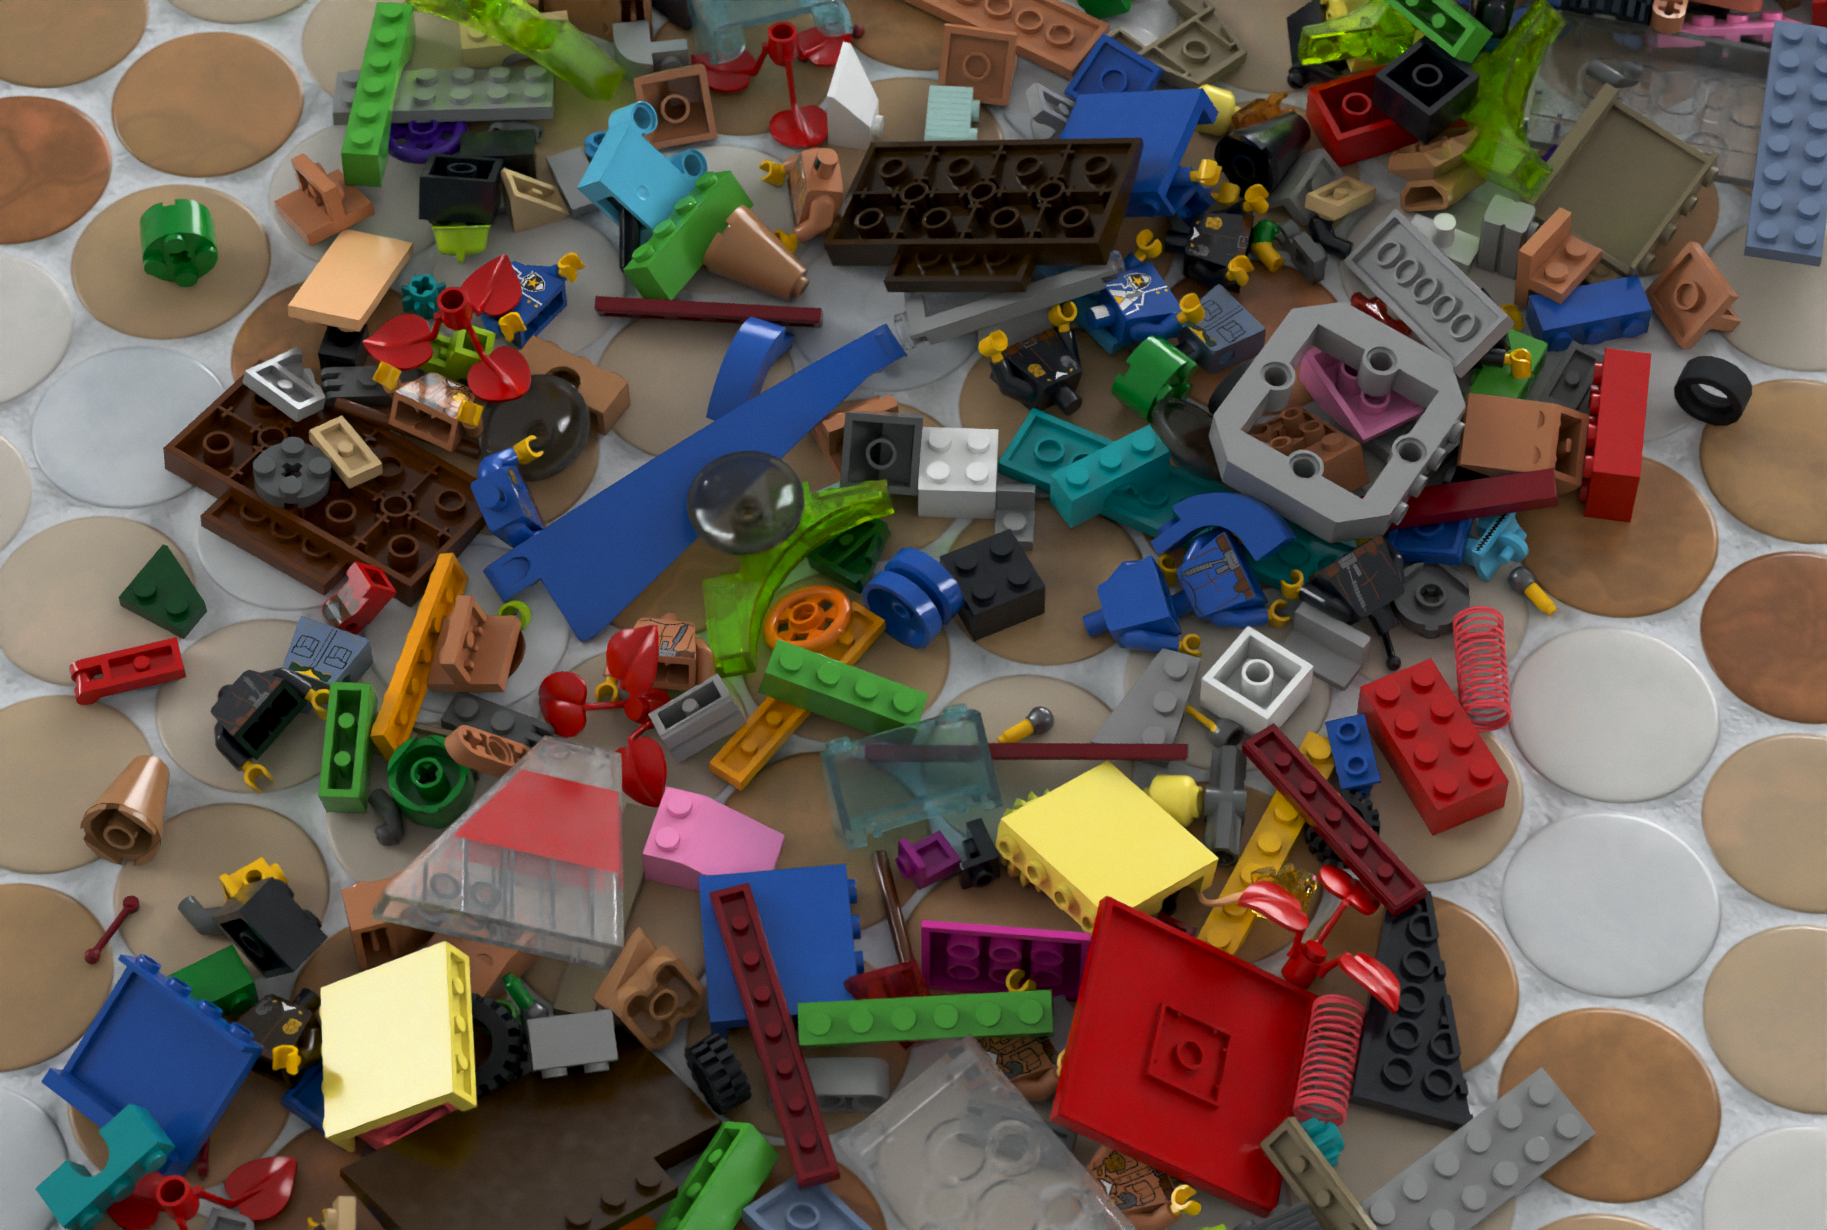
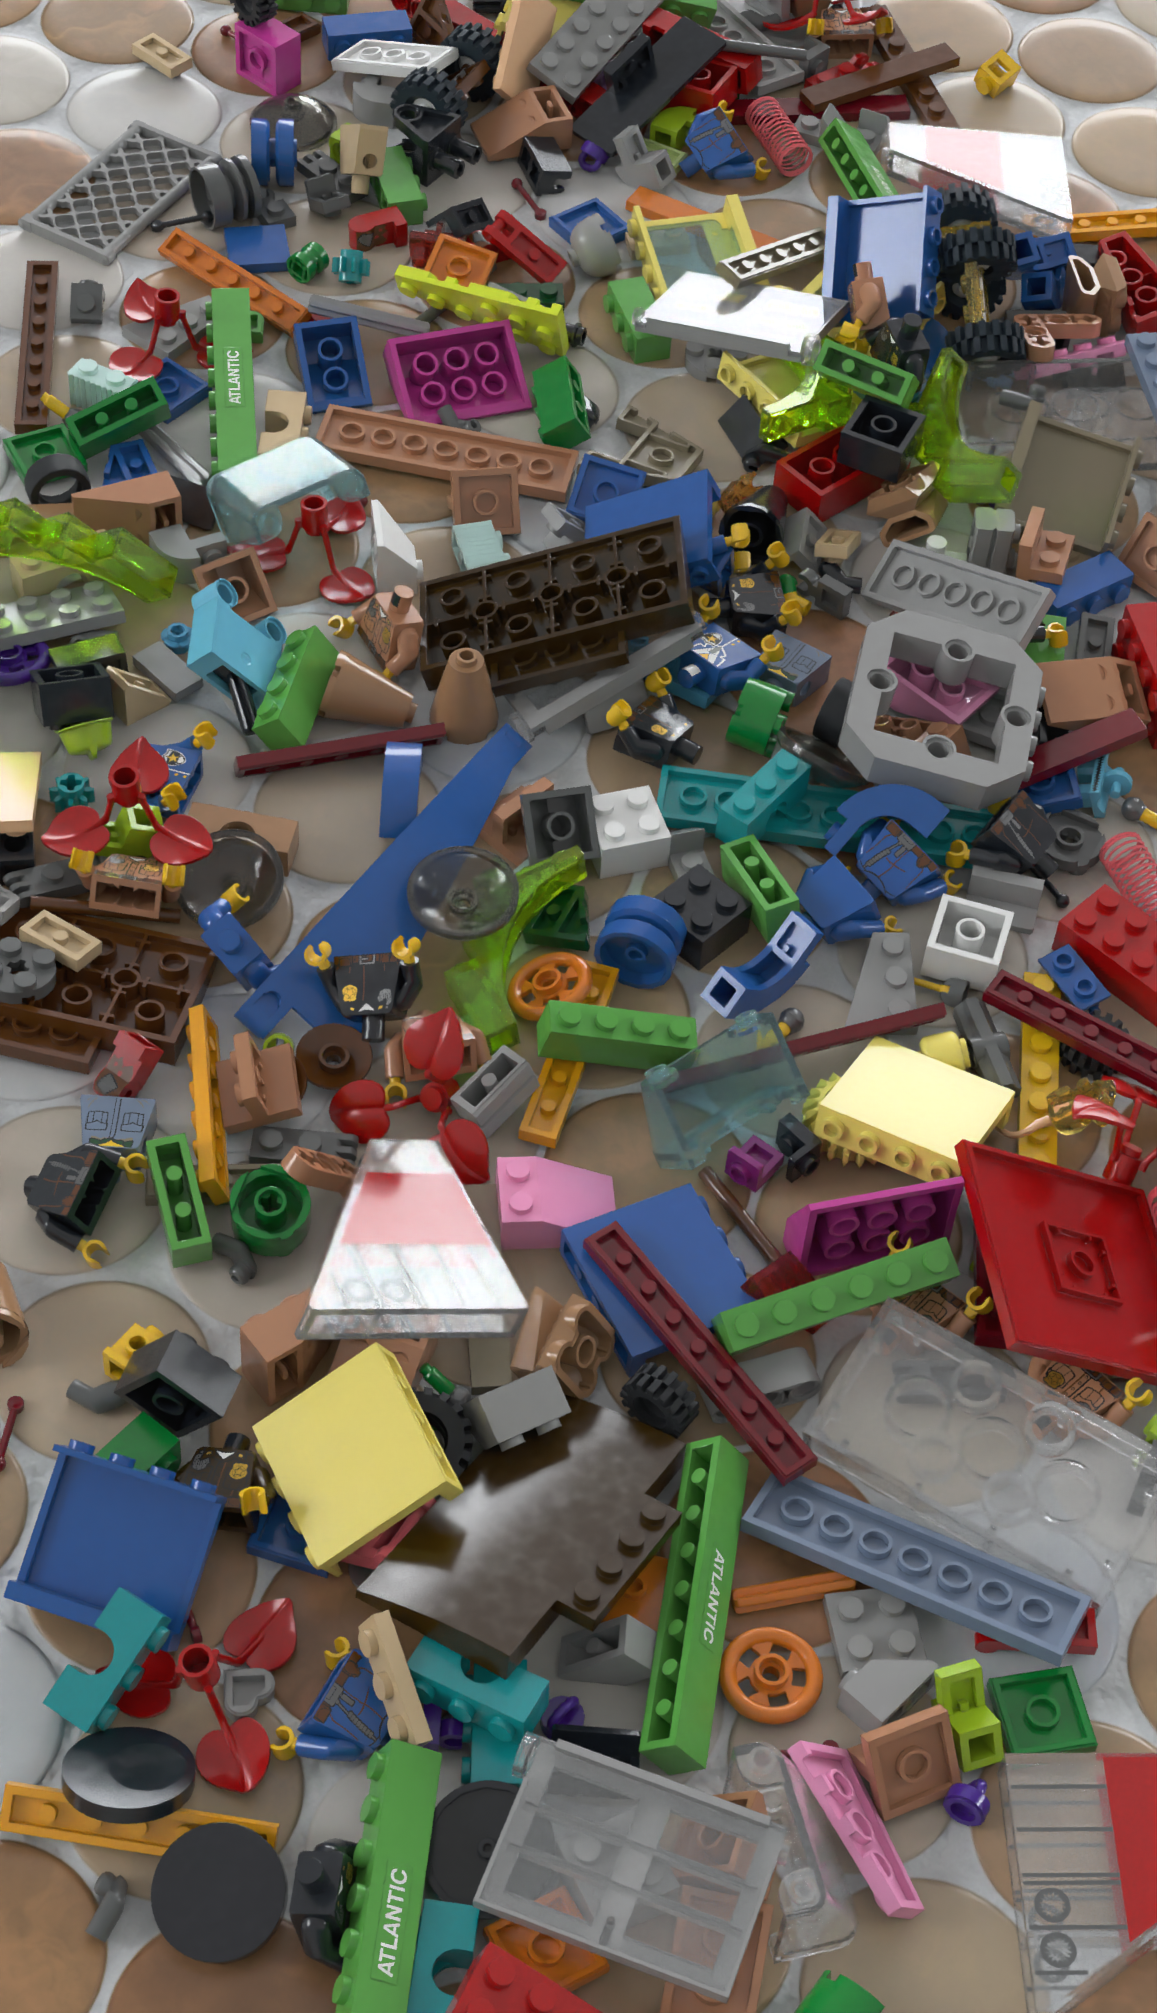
camera: 25 degrees left, 5 degrees down
(559, 625) = (336, 1044): none -> reddish brown dish
(612, 576) = (371, 985): none -> torso
(855, 290) = (465, 699): none -> medium nougat cone
(1027, 670) = (766, 975): none -> blue arch
(1064, 571) = (758, 880): none -> bright green brick

